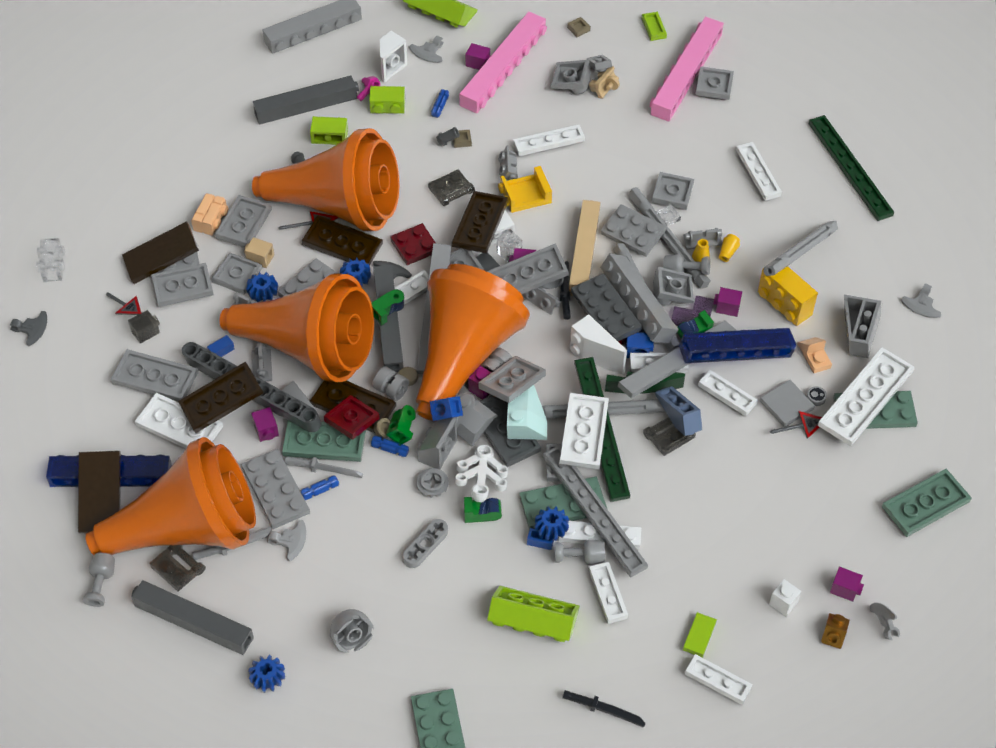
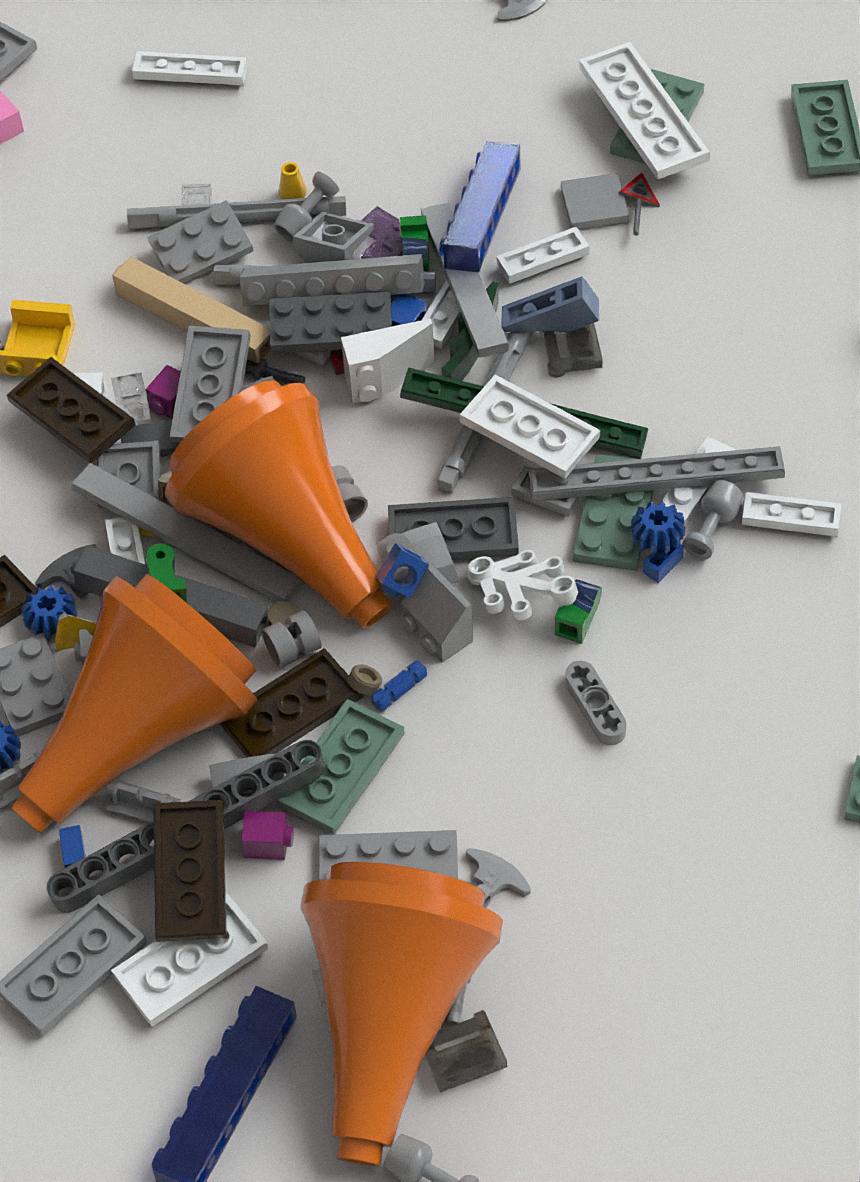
camera: 60 degrees left, 0 degrees up
(98, 487) = (265, 1113): dark brown tile -> none
(192, 617) = (568, 1058): dark grey brick -> none
(266, 673) = (711, 976): blue gear -> none
(314, 465) = (376, 797): light grey sword -> none
(319, 487) = (421, 802): blue axle -> none
(351, 417) = (330, 707): dark red plate -> none
(351, 630) = (701, 845): light grey cylinder -> none
(400, 425) = (375, 652): green leg -> none
(413, 244) = (39, 518): dark red plate -> none
(425, 478) = (490, 644): light grey gear -> none
(473, 382) = (365, 521): magenta brick -> none
(512, 379) = (391, 475): light grey plate -> none
(526, 417) = (447, 491): light aqua wedge -> none
(533, 613) = (783, 611): lime slope -> none
(673, 190) = (158, 173): light grey plate -> none
(711, 235) = (265, 174): light grey hinge -> none
(728, 301) = (394, 190): magenta brick -> none
(729, 247) = (300, 152): yellow cone -> none
(788, 294) = (426, 118): yellow brick -> none
(800, 248) = (375, 67): light grey piece -> none
(815, 354) = (534, 140): light nougat slope -> none
(817, 395) = (601, 164): light grey tile -> none
(861, 323) = (522, 69): light grey wedge -> none

